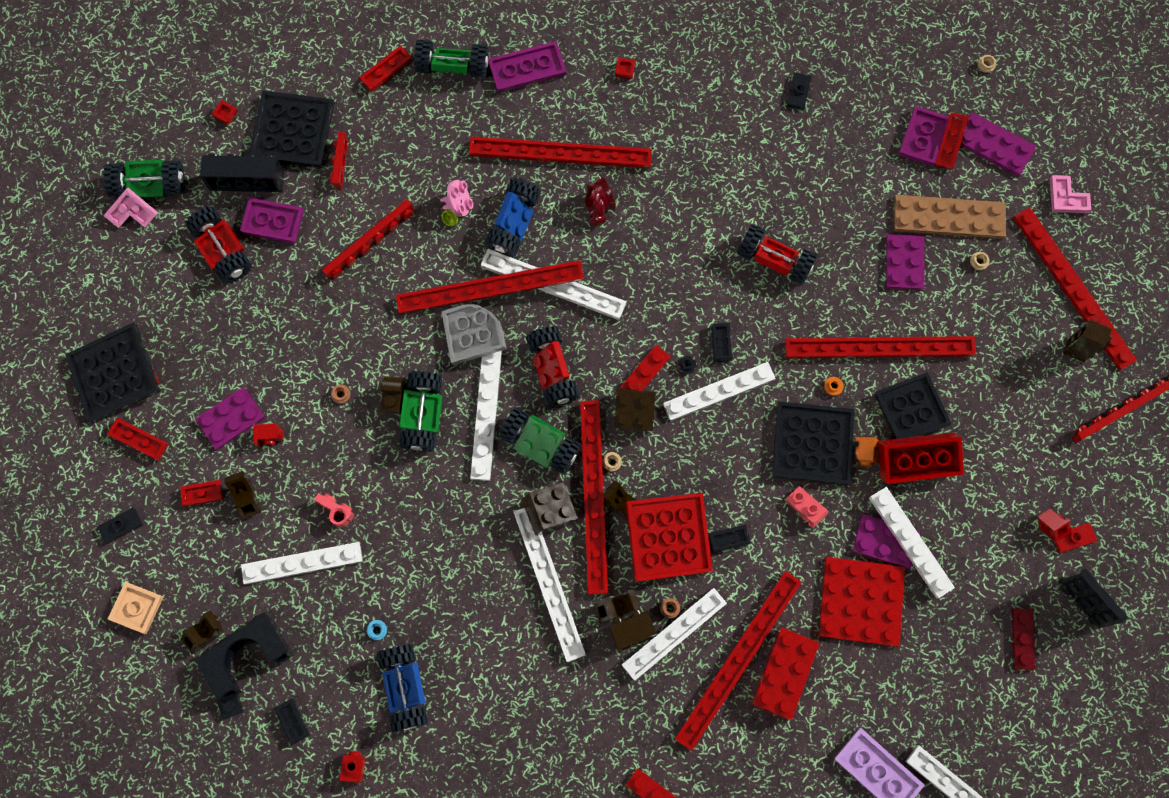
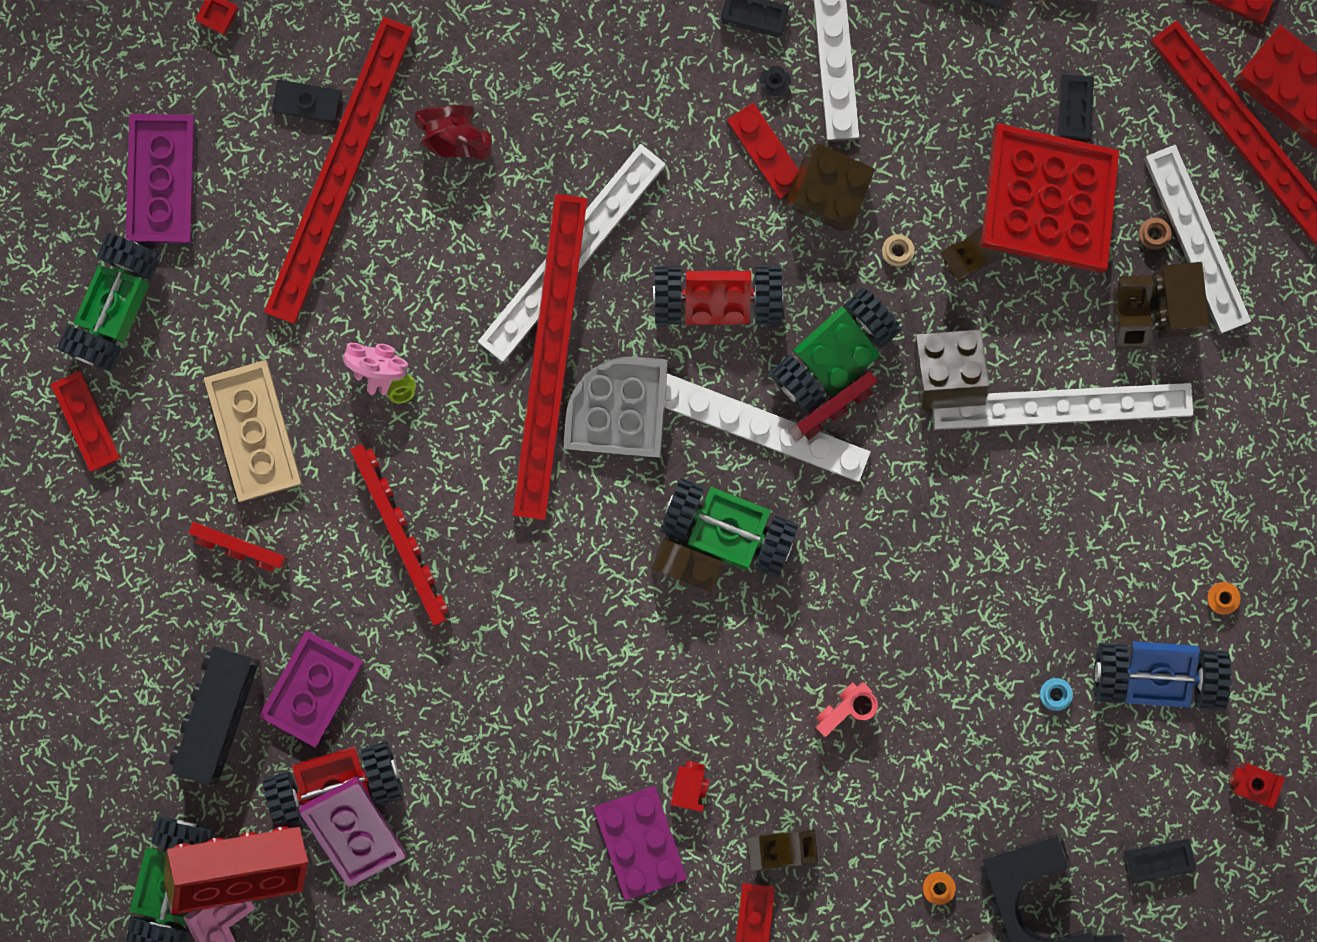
camera: 75 degrees left, 10 degrees up
(157, 203) = (235, 870): none -> brick
(196, 261) = (352, 832): none -> plate
(224, 112) = (81, 721): red plate -> none
(249, 597) = (928, 886): none -> orange plate
(292, 128) = (149, 613): black plate -> none
(301, 563) = (915, 785): white plate -> none
(340, 388) = (664, 652): nougat plate -> none
(404, 151) = (253, 431): none -> tan plate
(462, 707) = (1214, 602): none -> orange plate
(507, 449) = (834, 408): none -> dark red plate
(513, 217) = (438, 282): plate -> none
(593, 126) = (306, 101): none -> black plate
(593, 498) = (946, 295): red plate -> none

